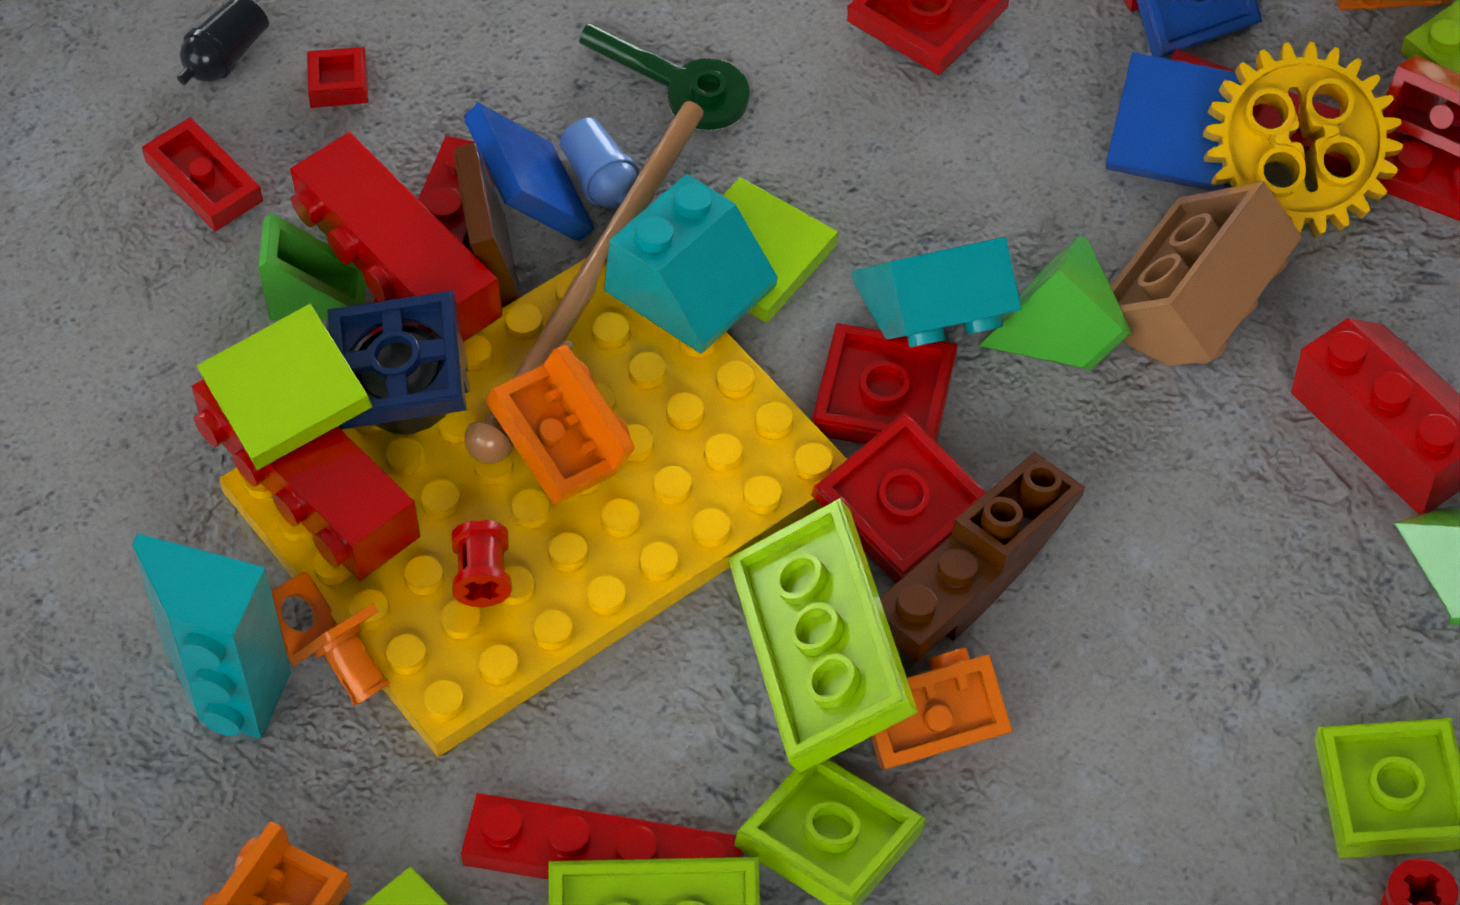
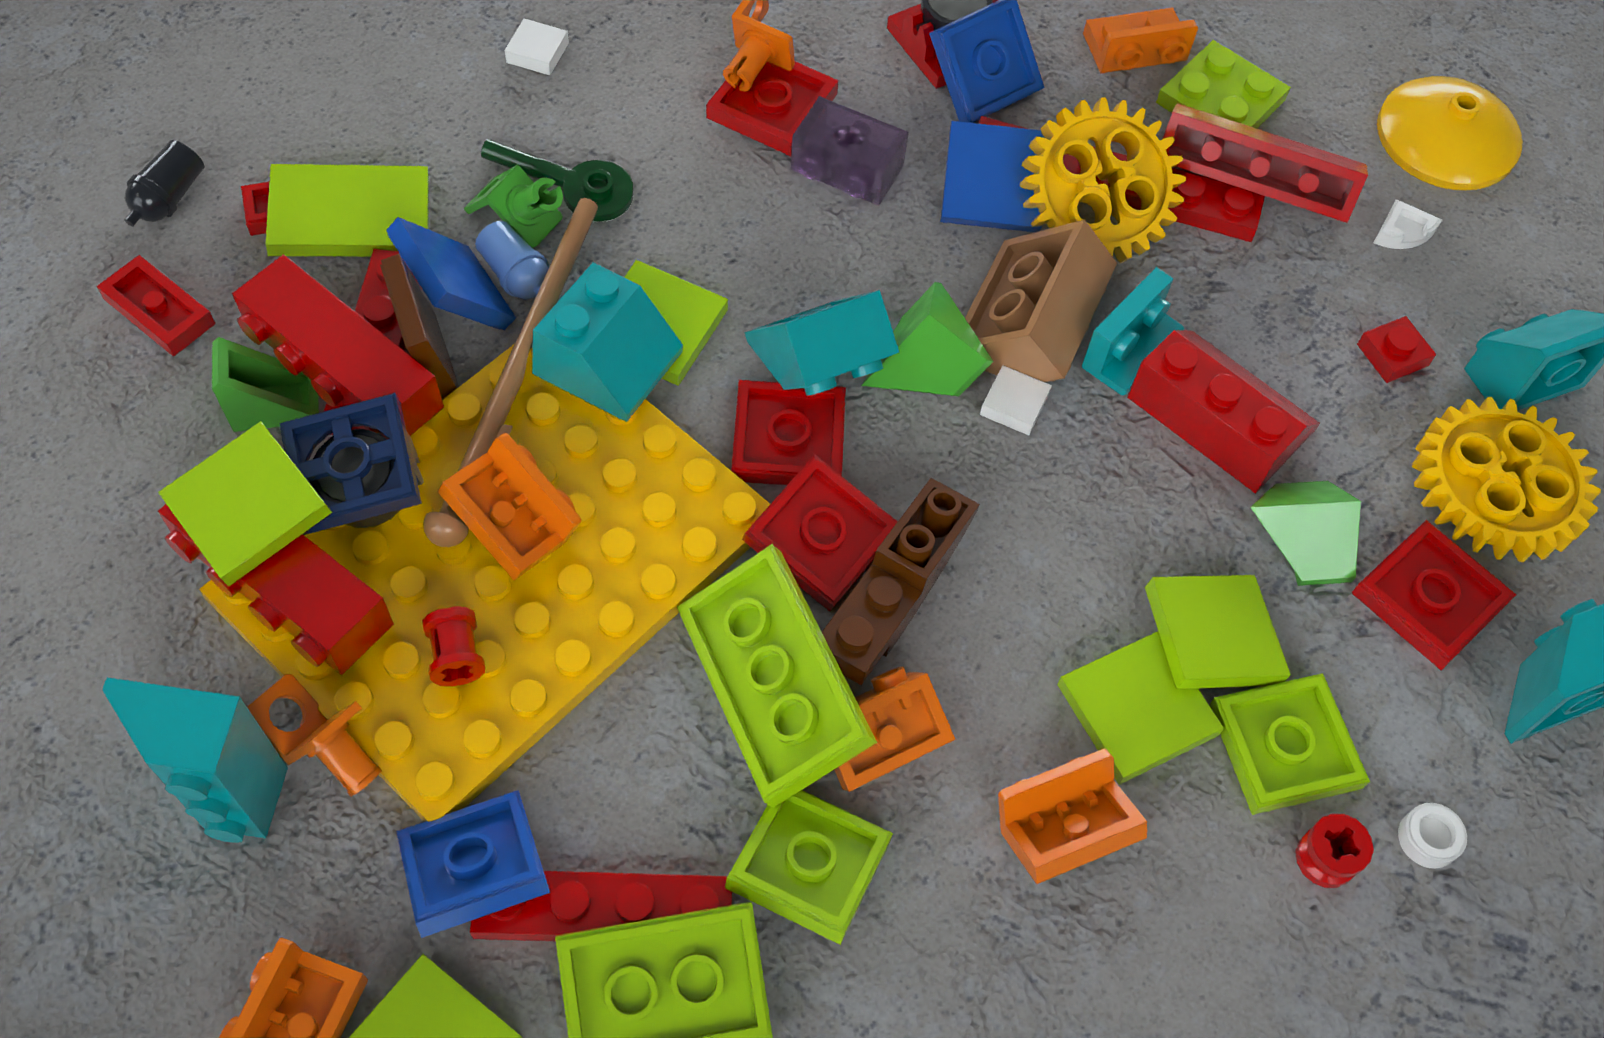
camera: 15 degrees left, 5 degrees up
(416, 86) = (341, 207): none -> lime tile
(472, 783) = (471, 863): none -> blue tile
(618, 101) = (522, 203): none -> bright green bracket
(1008, 75) = (848, 150): none -> clear purple brick
(1122, 822) = (1068, 816): none -> orange bracket
(1154, 380) = (1015, 400): none -> white tile
(1231, 727) = (1135, 709): none -> lime tile
(1300, 314) = (1131, 333): none -> teal bracket
(1334, 656) = (1216, 631): none -> lime tile

